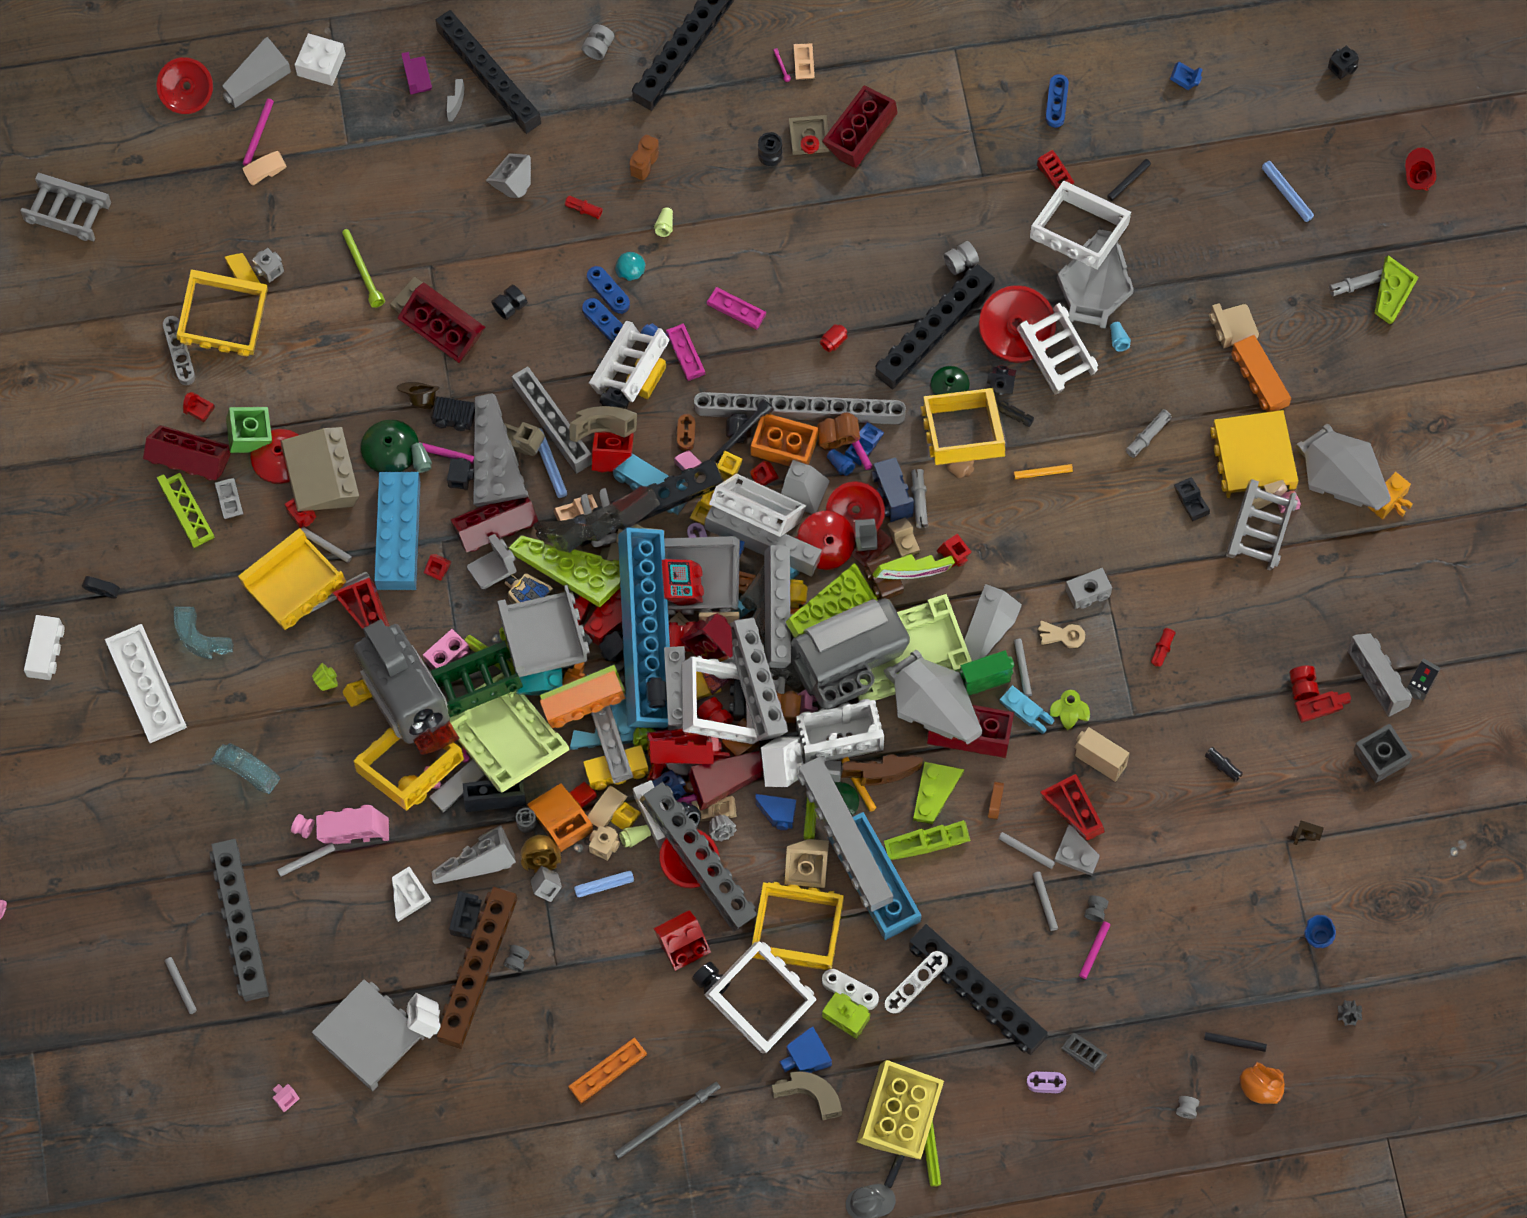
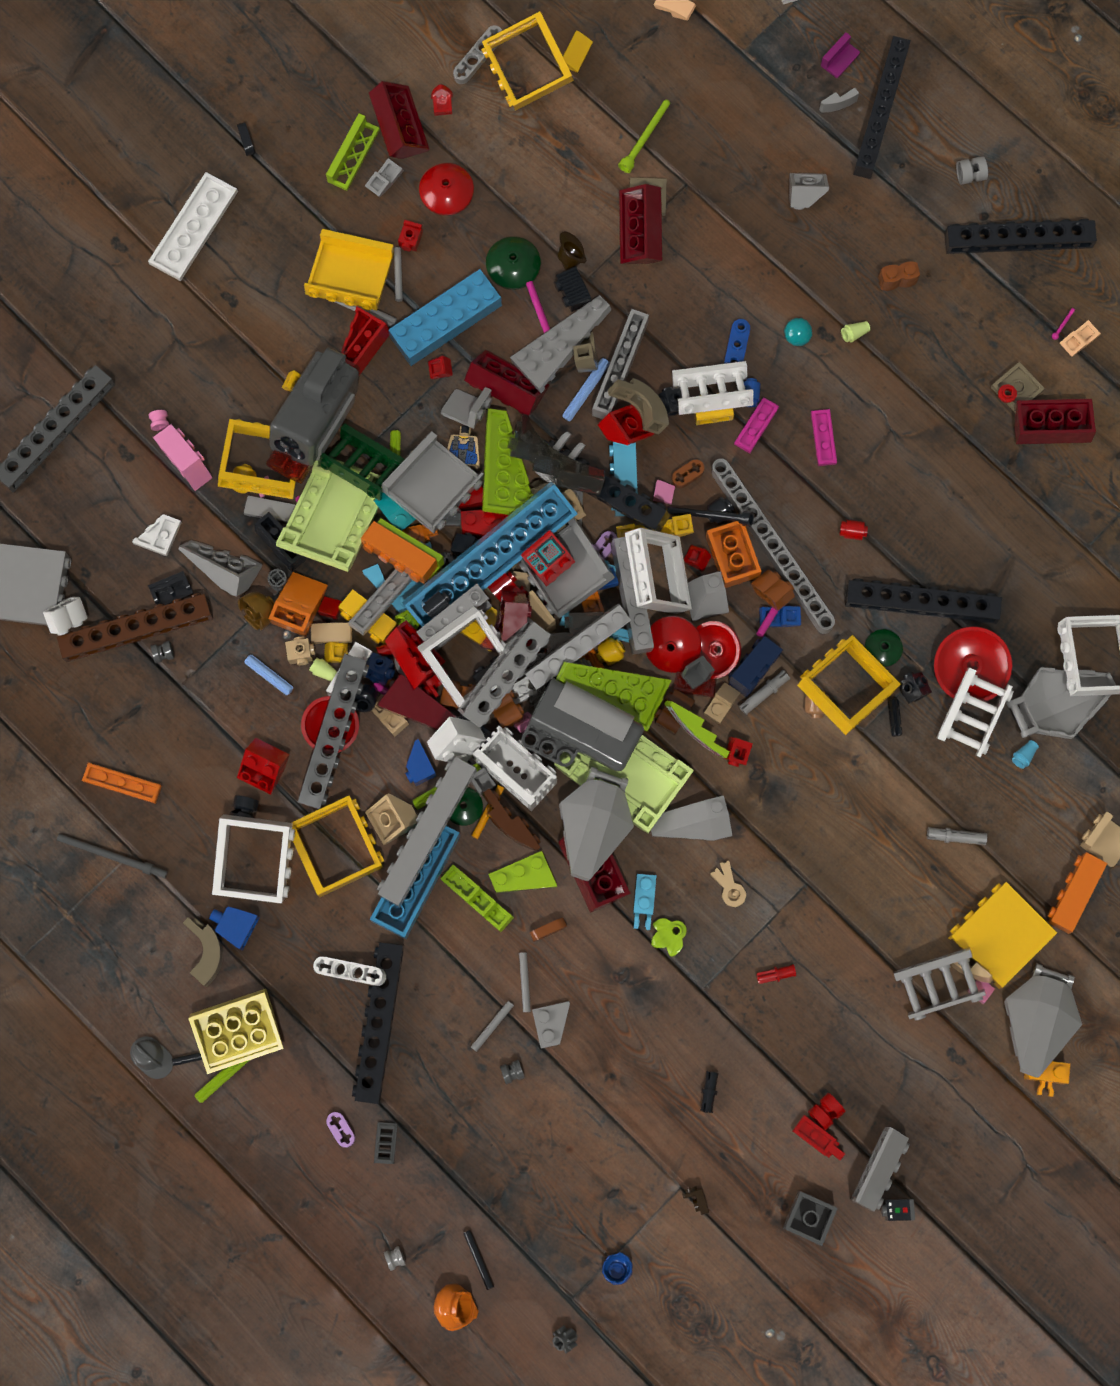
camera: 55 degrees right, 10 degrees up
(44, 647) = (169, 134): white brick -> none
(198, 644) = (253, 226): clear light blue arch -> none
(247, 766) = (173, 346): clear light blue arch -> none
(248, 428) = (447, 149): bright green slope -> none
(268, 264) = (593, 65): light grey brick -> none
(306, 859) = (141, 444): light grey bar -> none
(320, 470) = (450, 224): dark tan slope -> none
(325, 677) = (288, 351): lime piece -> none
(421, 460) = (517, 291): sand green cone -> none
(442, 650) = (373, 420): bright pink brick -> none
(460, 473) = (526, 329): black brick -> none
(509, 302) = (696, 263): black wheel -> none
(546, 883) = (237, 631): light grey panel -> none
(574, 509) = (554, 432): light nougat slope -> none
(583, 207) = (822, 261): red axle -> none
(609, 296) = (763, 336): blue plate -> none
(712, 711) = (463, 662): red wheel -> none
(721, 828) = (374, 731): light grey piece -> none
(770, 149) = (980, 366): black wheel -> none
(841, 462) = (749, 612): blue cone -> none
(846, 1014) = (287, 934): lime brick -> none
(857, 995) = (316, 931): white plate -> none
(963, 256) = (998, 580): light grey wheel -> none
(987, 672) = (648, 848): green brick -> none
(1022, 667) = (678, 873): light grey bar -> none
(1043, 471) = (860, 773): light orange bar -> none
(1074, 806) = (585, 997): red wedge -> none
(1094, 950) = (478, 1093): dark pink bar -> none
(1096, 580) = (795, 880): light grey brick -> none
(1101, 753) = (644, 987): tan brick -> none
(1191, 499) = (924, 910): black slope -> none

